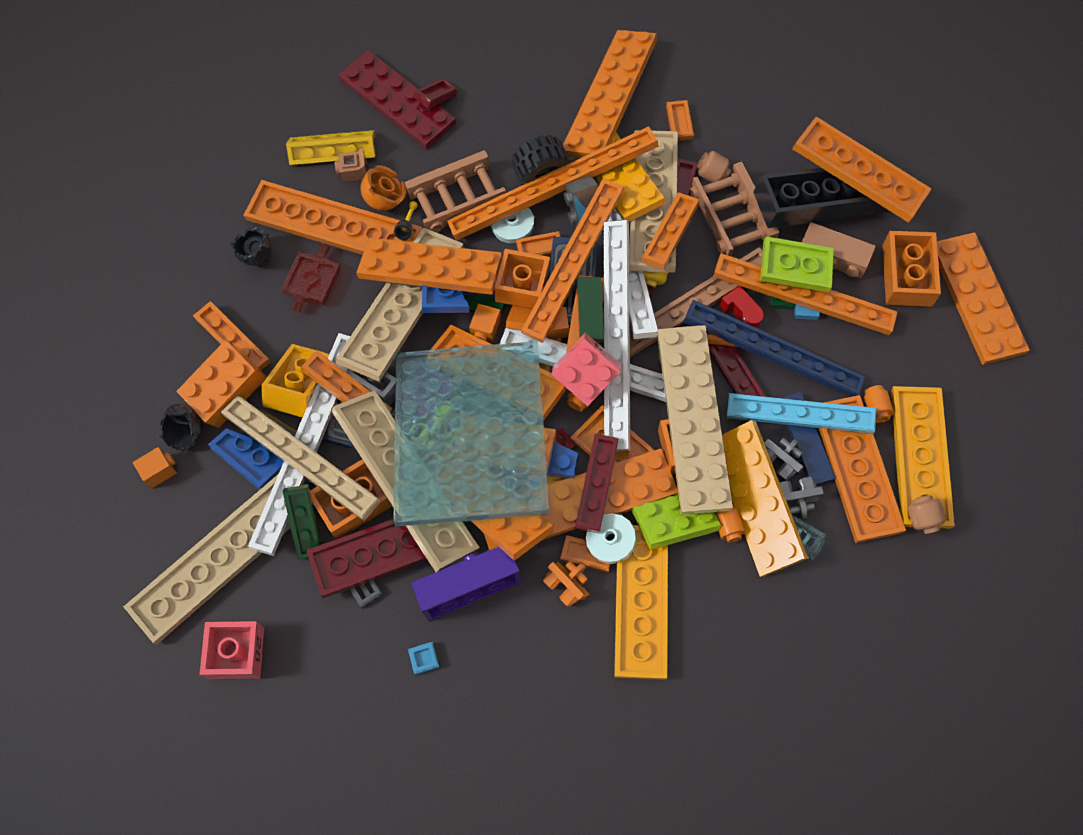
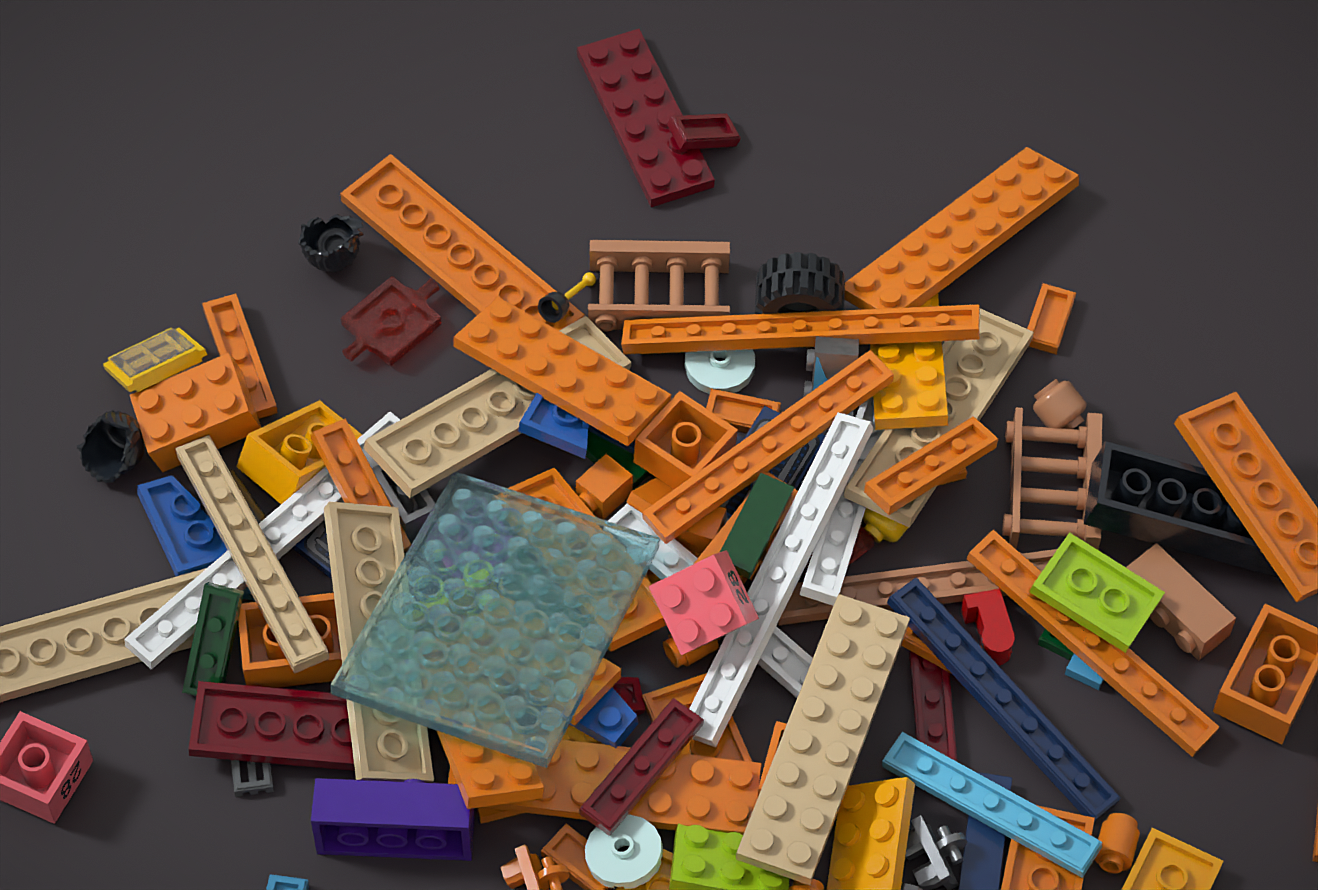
camera: 20 degrees right, 10 degrees down
(155, 467) = (52, 486): orange brick -> none
(181, 362) = (154, 359): none -> piece
(327, 147) = (513, 148): yellow fence -> none
(351, 166) = (528, 187): nougat window -> none
(382, 188) = (554, 236): orange cylinder -> none
(685, 173) = (1014, 393): dark red tile -> none

